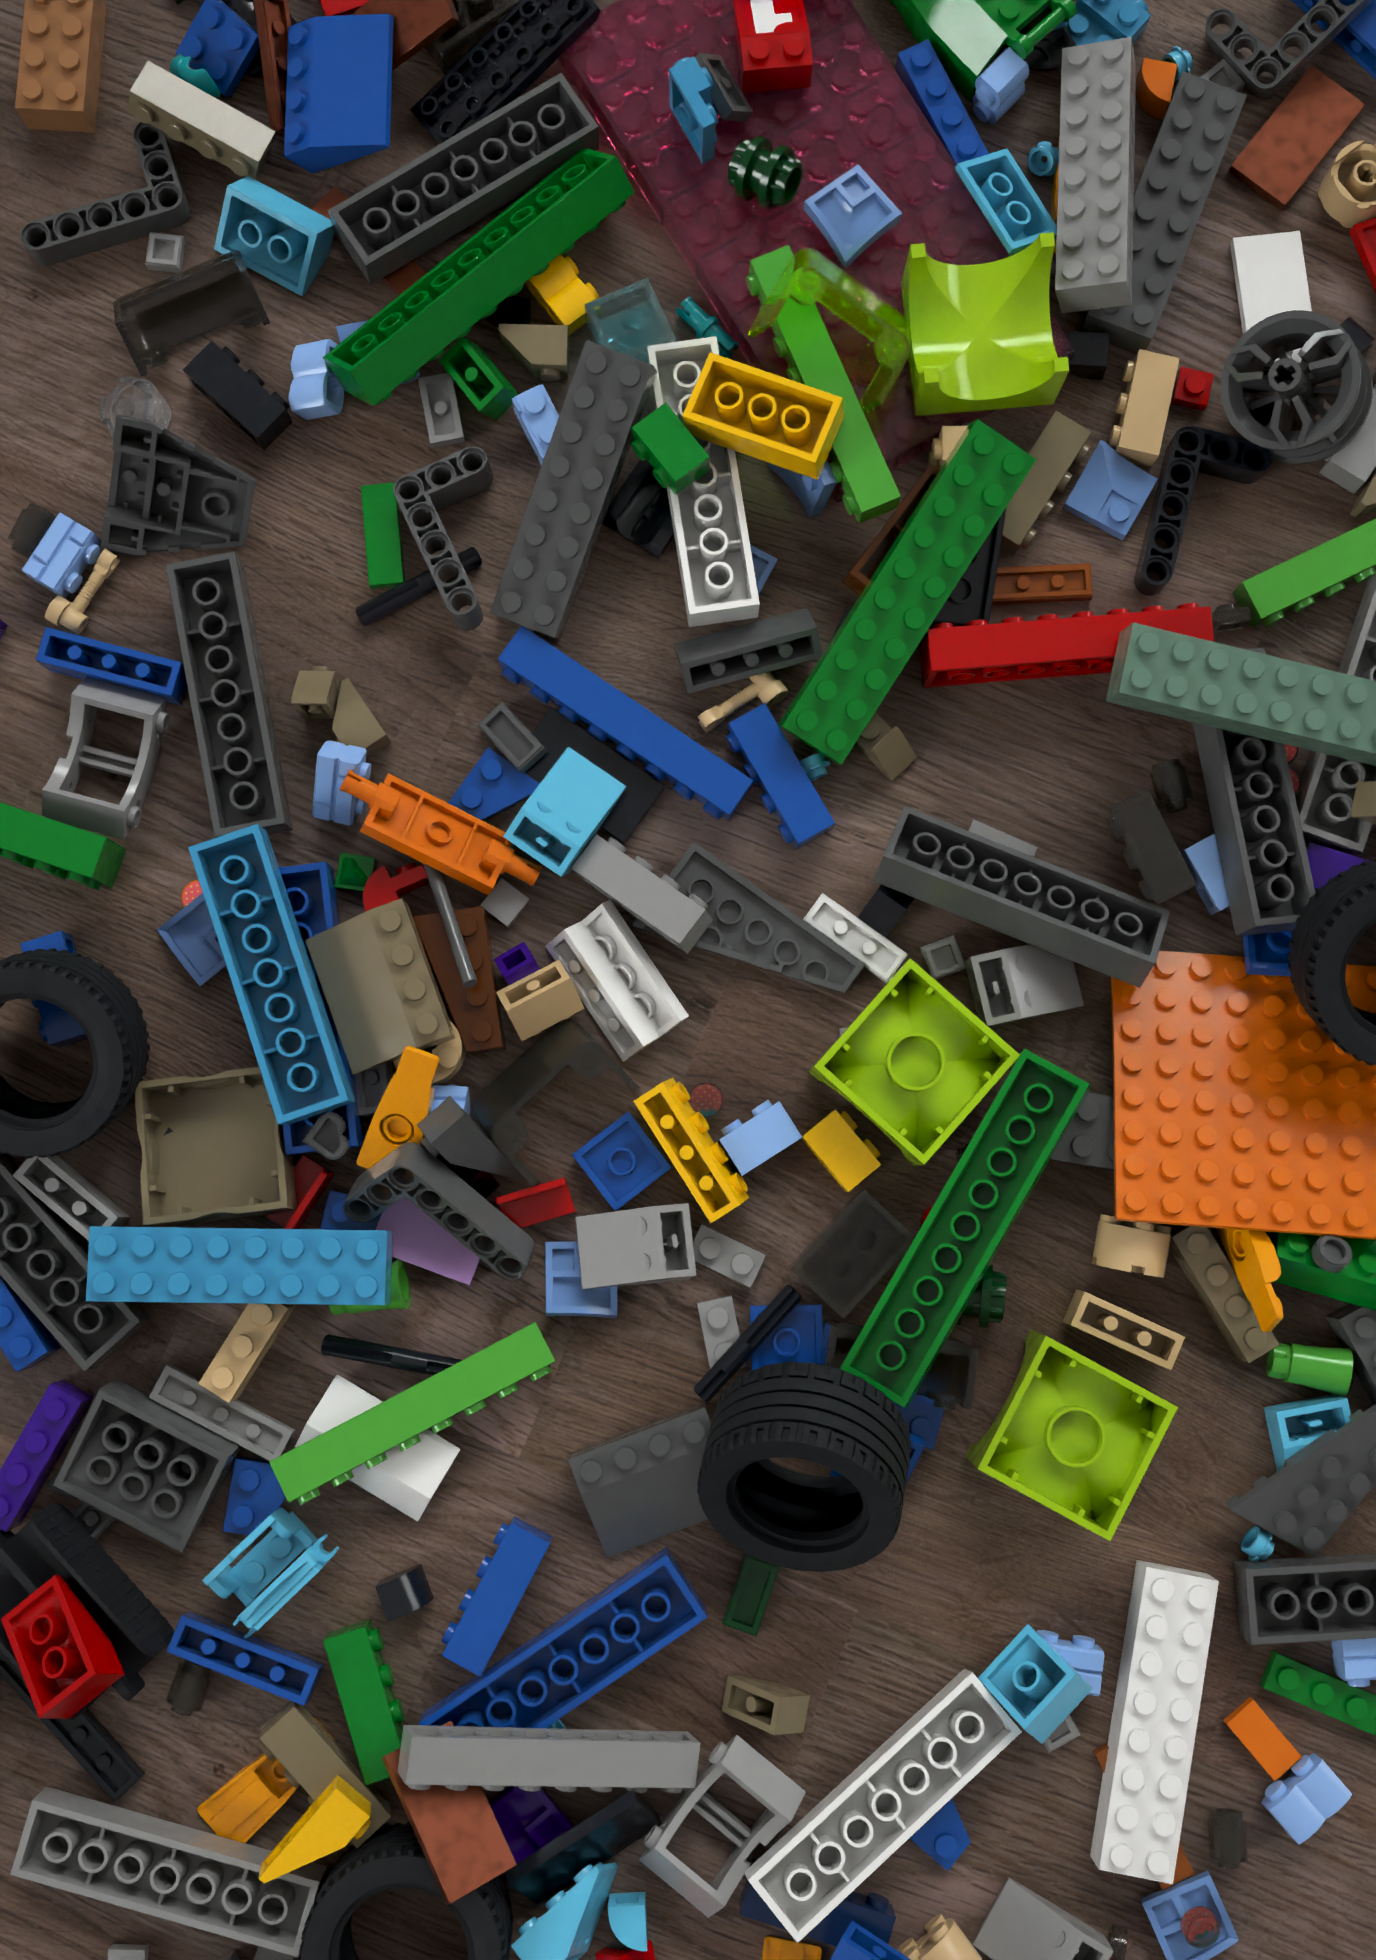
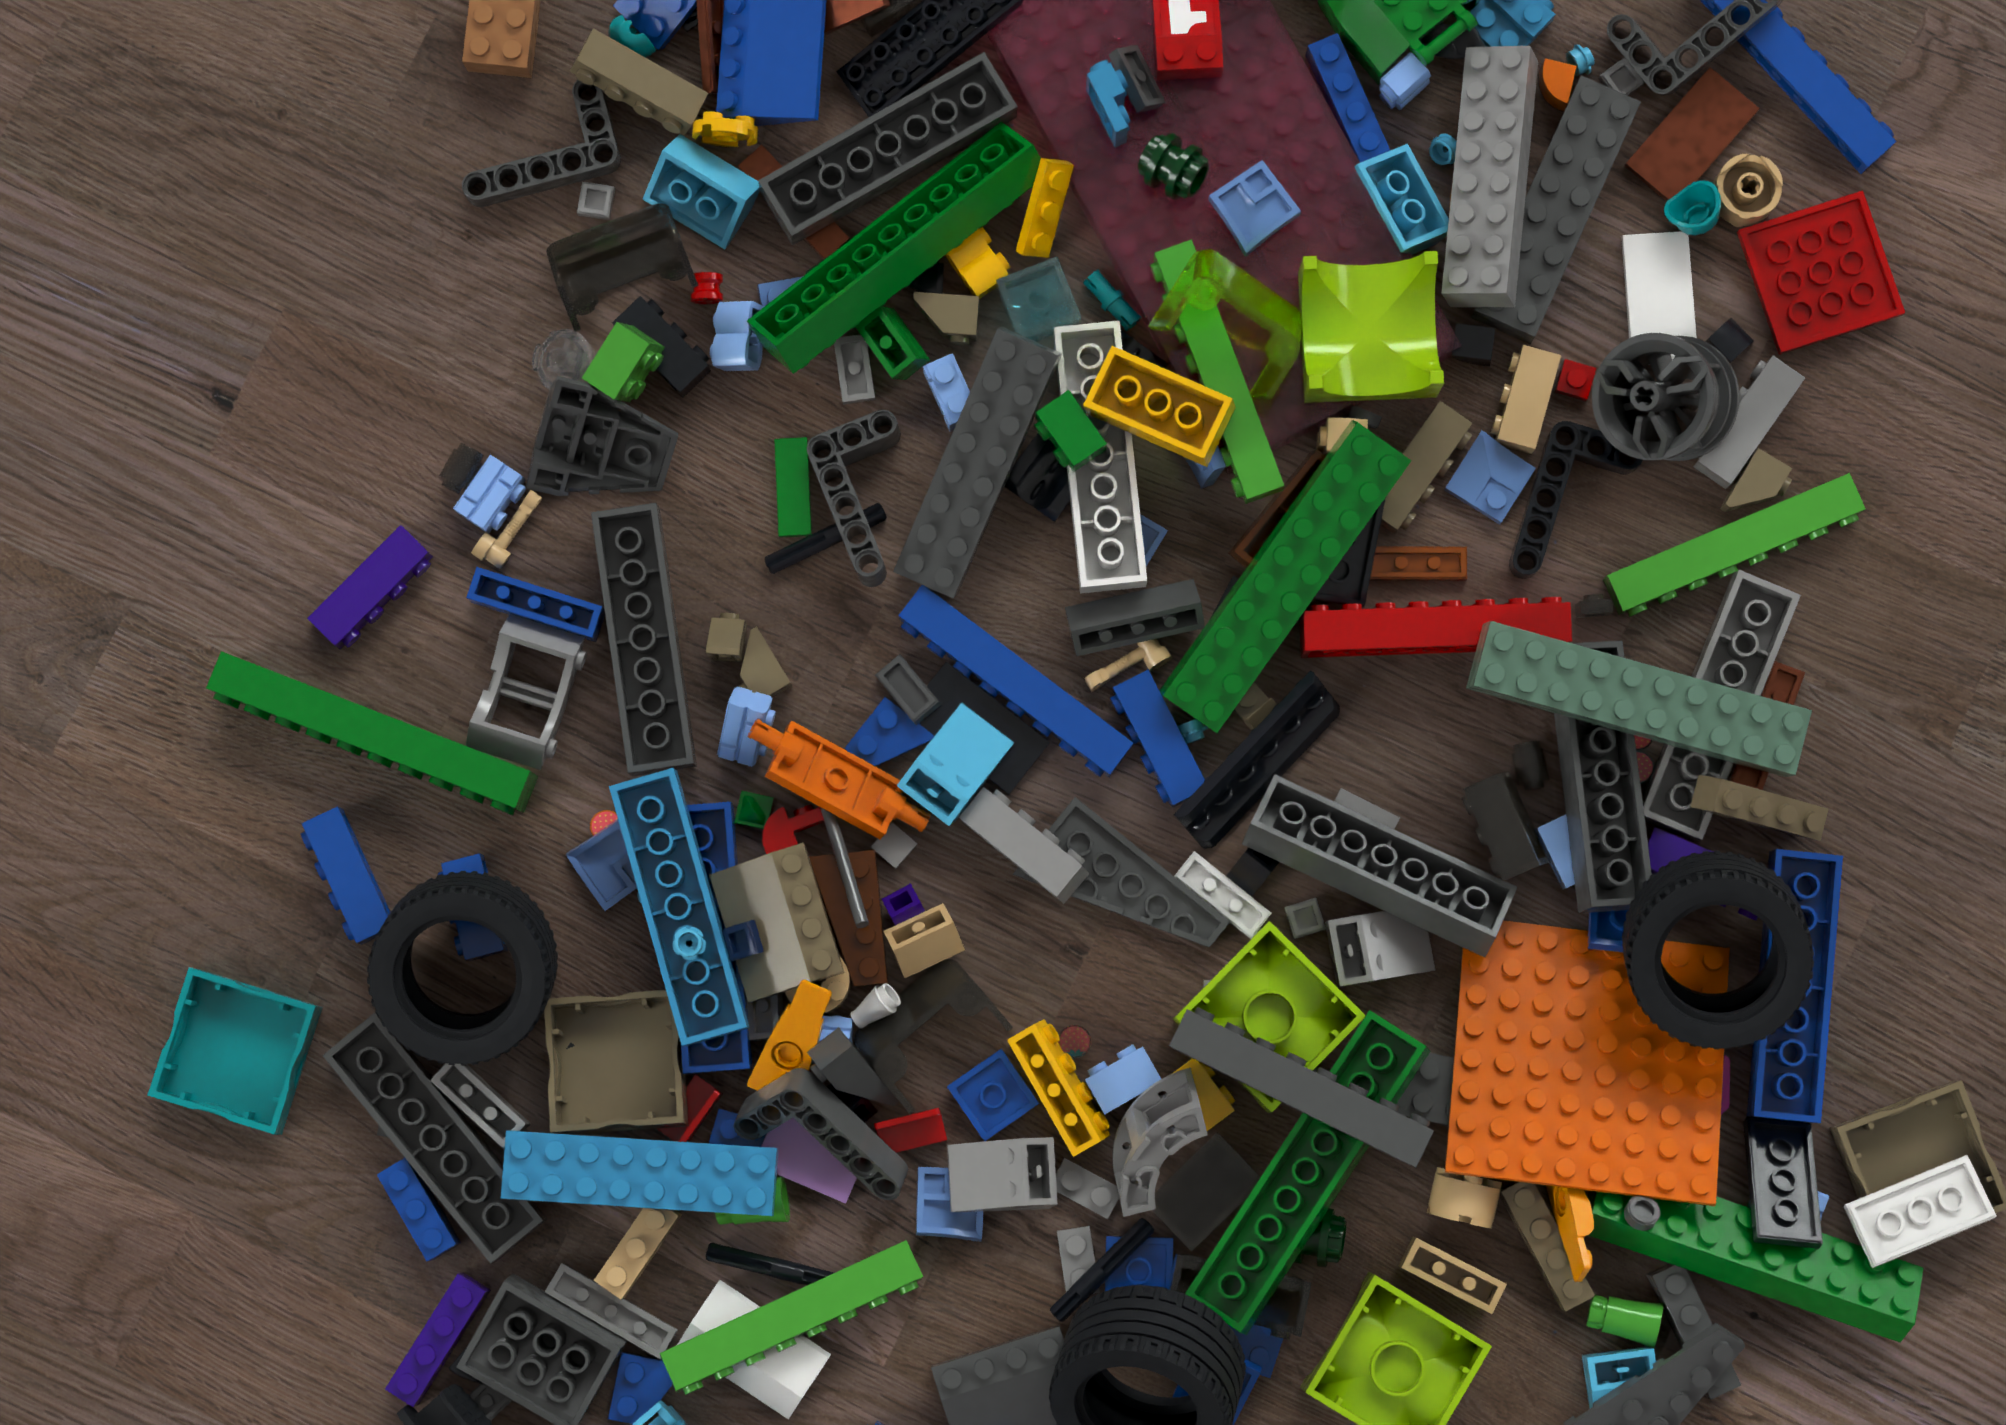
camera: 10 degrees right, 0 degrees up
(192, 402) = (624, 363): none -> bright green brick
(271, 1008) = (682, 936): none -> medium azure plate
(283, 333) = (708, 288): none -> red wheel
(294, 167) = (725, 131): none -> yellow plate
(328, 1136) = (723, 1059): dark grey tile -> none
(342, 1007) = (742, 940): none -> dark blue tile
(493, 1070) = (877, 1004): none -> white cone
(617, 981) = (996, 925): white slope -> none
(632, 230) = (1044, 207): none -> yellow plate
(794, 1200) = (1151, 1140): none -> light grey window
(878, 800) = (1251, 766): none -> black plate
(958, 1136) = (1302, 1088): none -> dark grey brick
(1309, 202) = (1694, 208): none -> teal helmet

